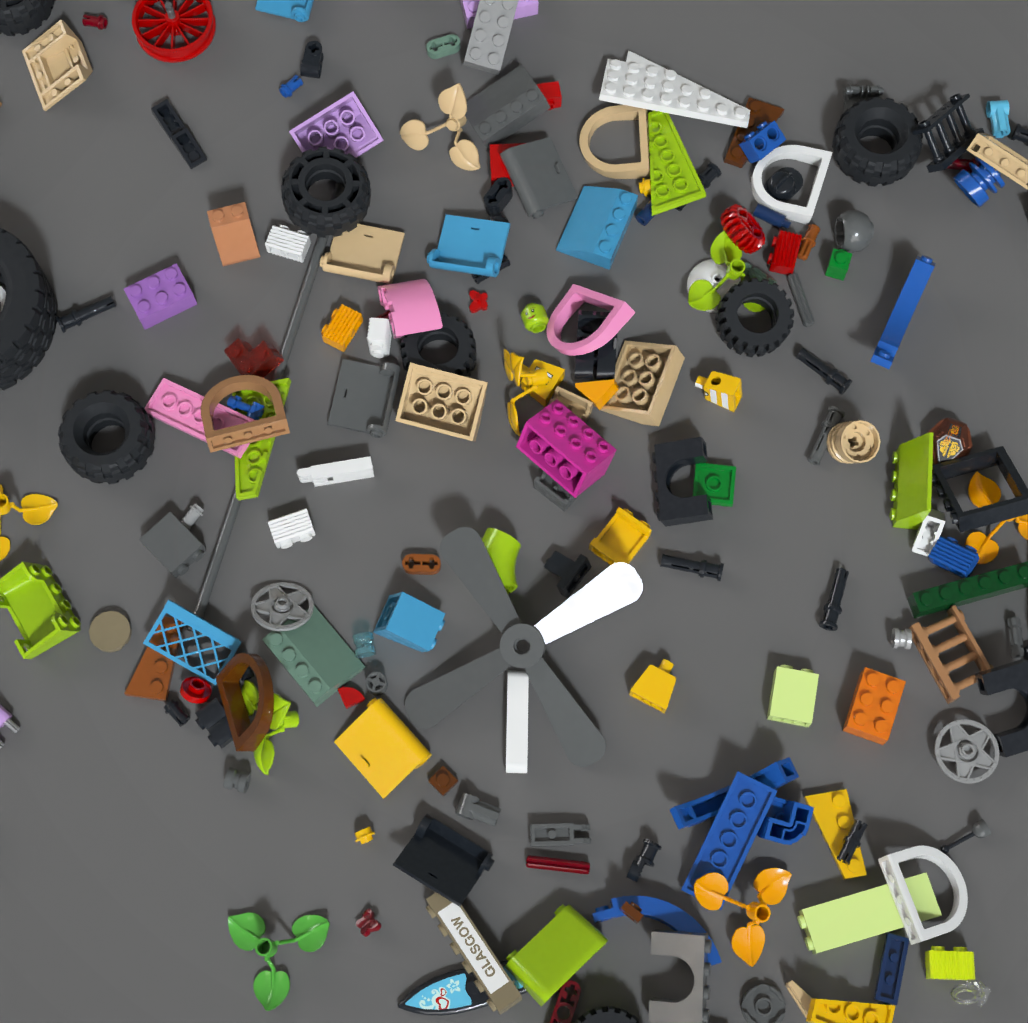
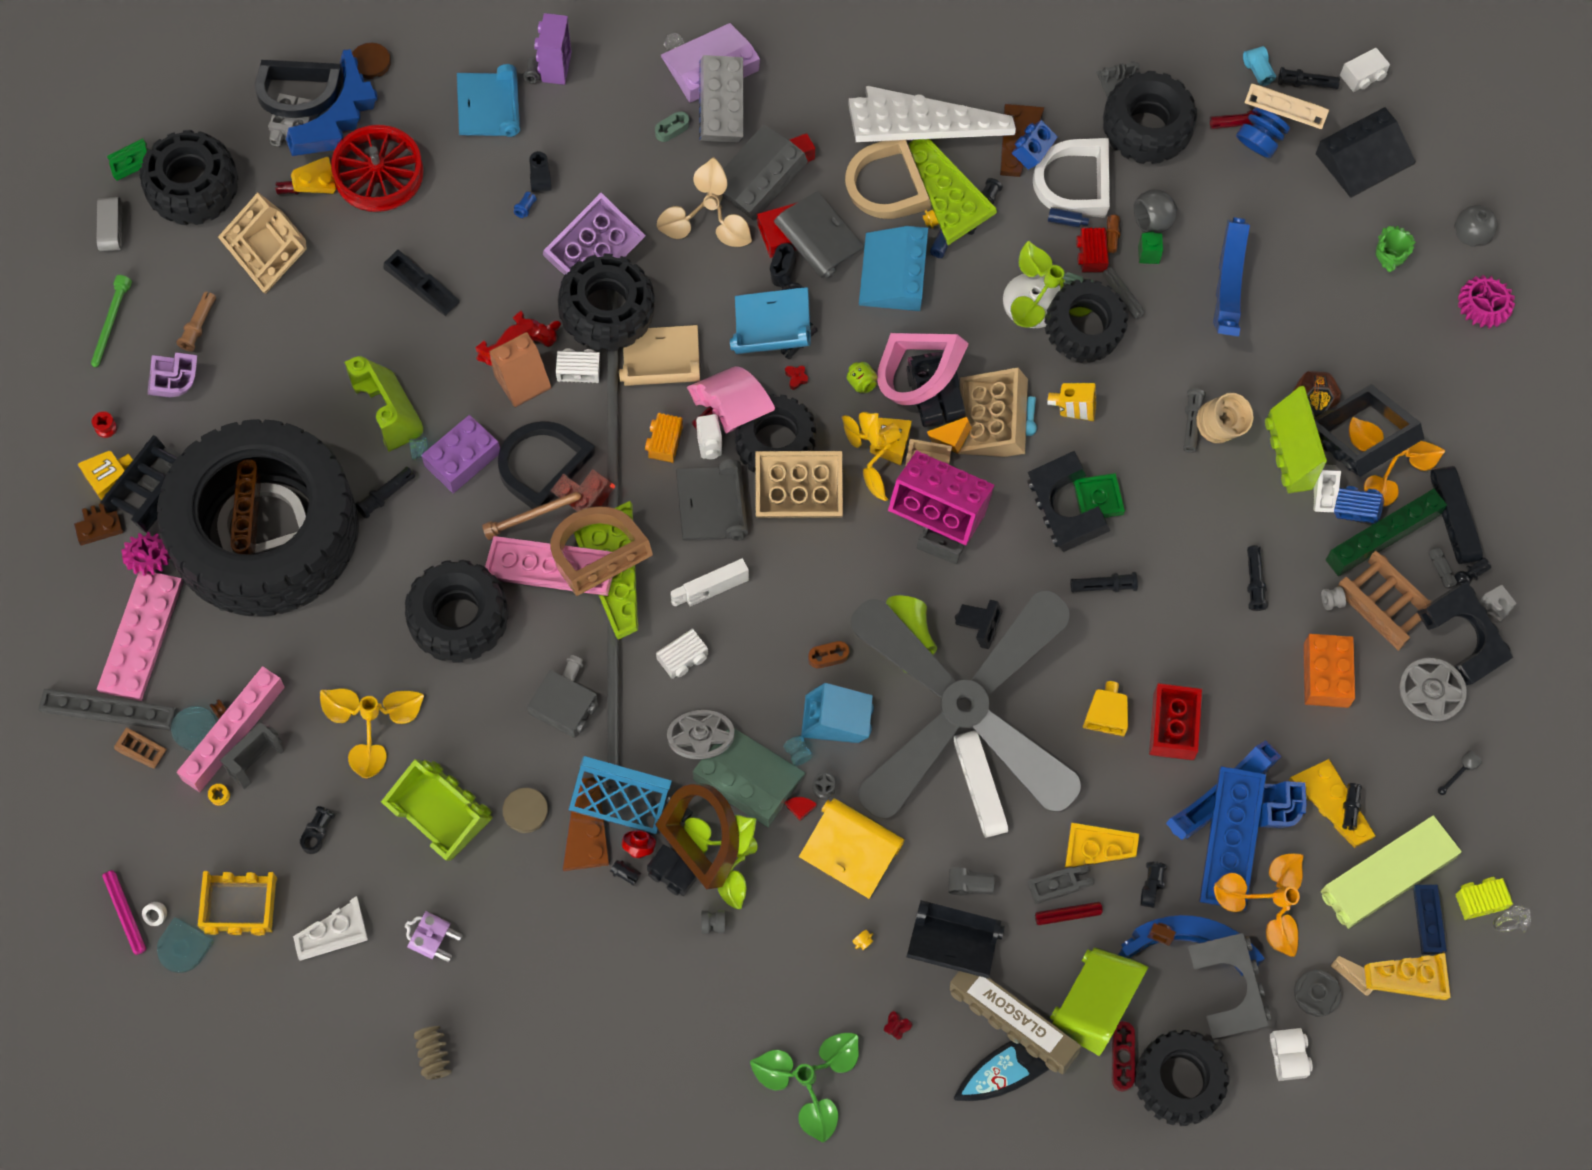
camera: 20 degrees left, 5 degrees down
(116, 18) = (314, 177): none -> yellow wing
(117, 250) = (396, 419): none -> lime windscreen
(125, 280) = (418, 447): none -> clear light blue wheel
(166, 371) = (493, 528): none -> medium nougat piece
(250, 335) = (584, 450): none -> black window
(254, 201) = (537, 332): none -> red animal
(254, 411) = (606, 543): blue bar -> none
(443, 781) = (924, 864): reddish brown plate -> none
(605, 809) = (1098, 845): none -> yellow wing
(621, 538) = (1023, 574): yellow panel -> none
(674, 402) = (1031, 426): none -> medium azure bar
(713, 714) = (1175, 721): none -> red brick
(742, 229) = (1044, 236): red gear -> none
(784, 184) = (1068, 182): black piece -> none
(793, 696) = (1246, 683): yellowish green brick -> none
(831, 376) = (1179, 360): black pin -> none
(904, 901) = (1420, 844): white window -> none
(960, 143) = (1232, 98): black fence -> none

